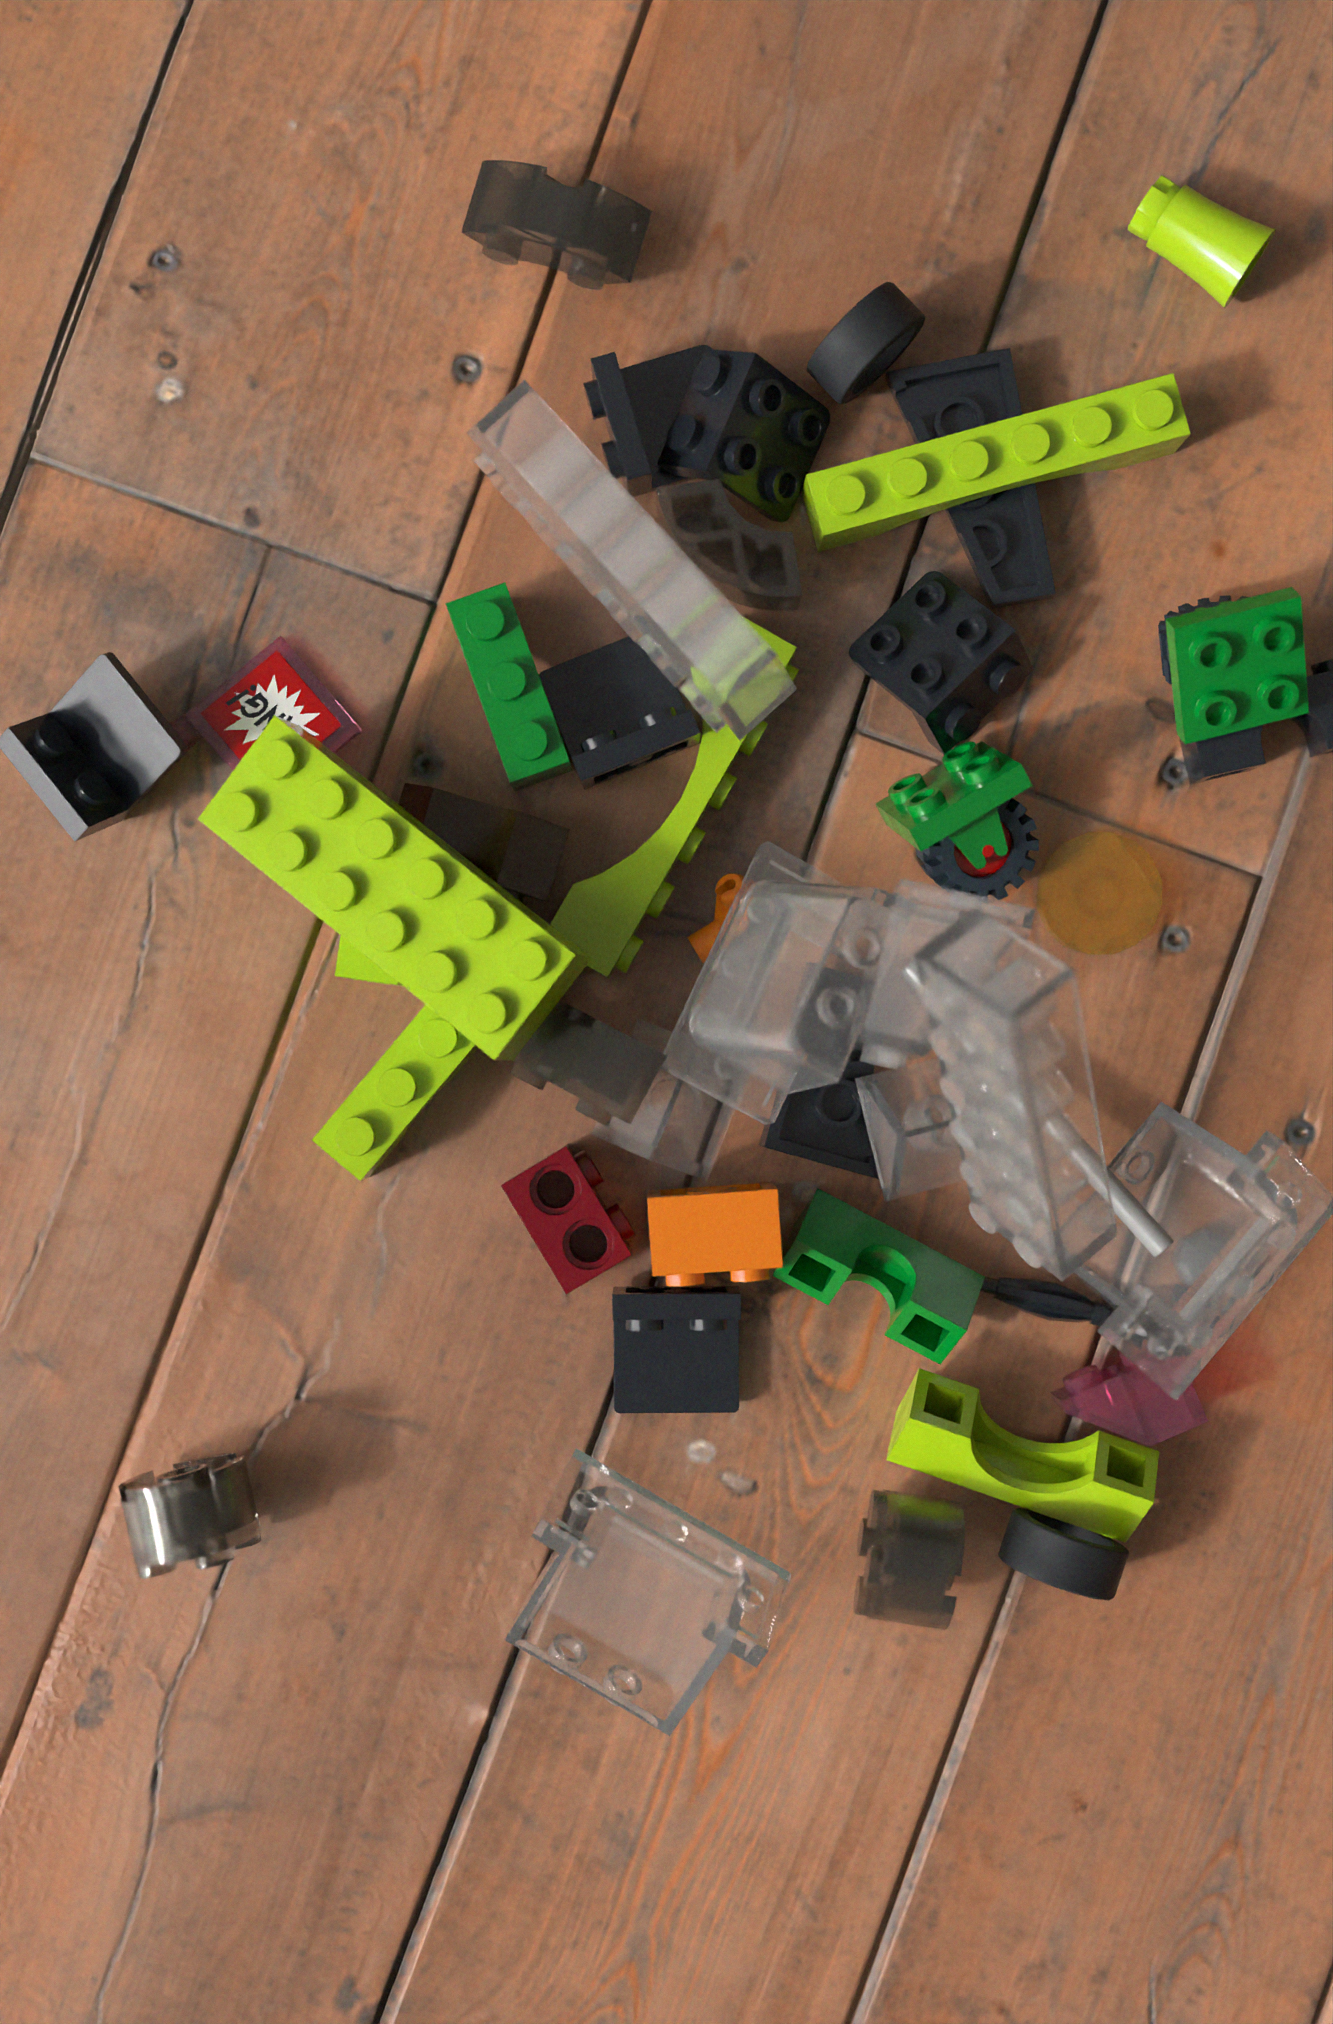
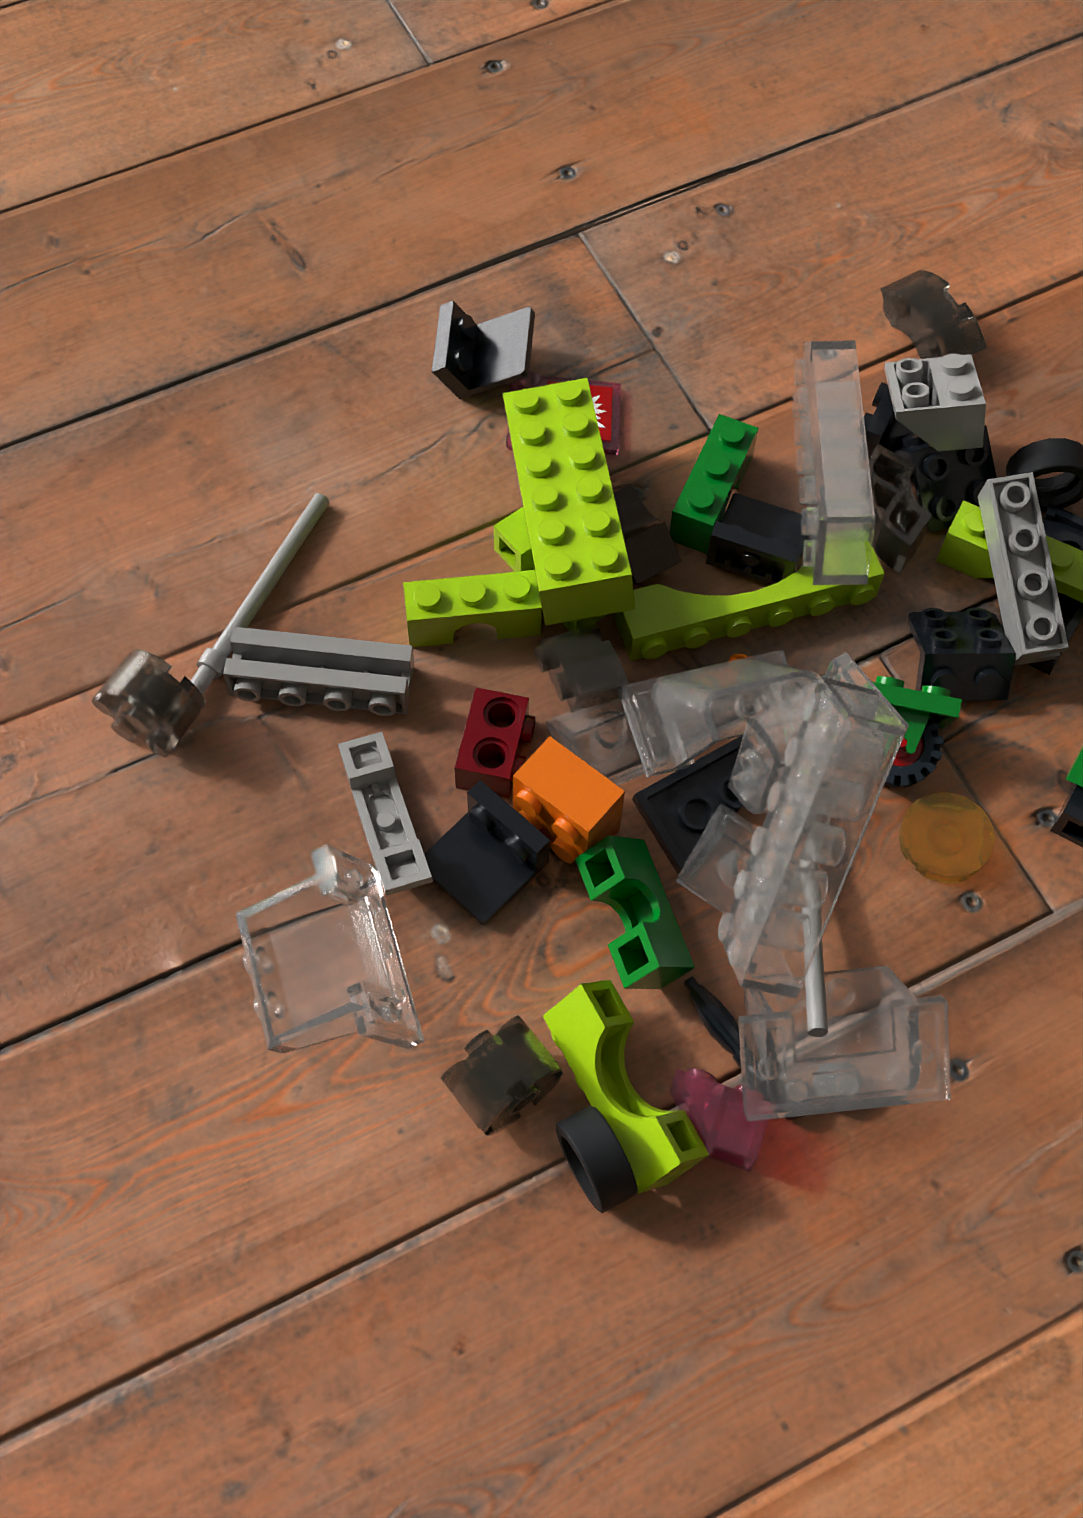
camera: 45 degrees right, 25 degrees down
(193, 1390) = (213, 659): none -> light grey bar
(316, 1303) = (320, 671): none -> light grey brick
(541, 1397) = (384, 814): none -> light grey slope
(682, 382) = (939, 400): none -> light grey slope
(949, 525) = (1022, 568): none -> light grey brick

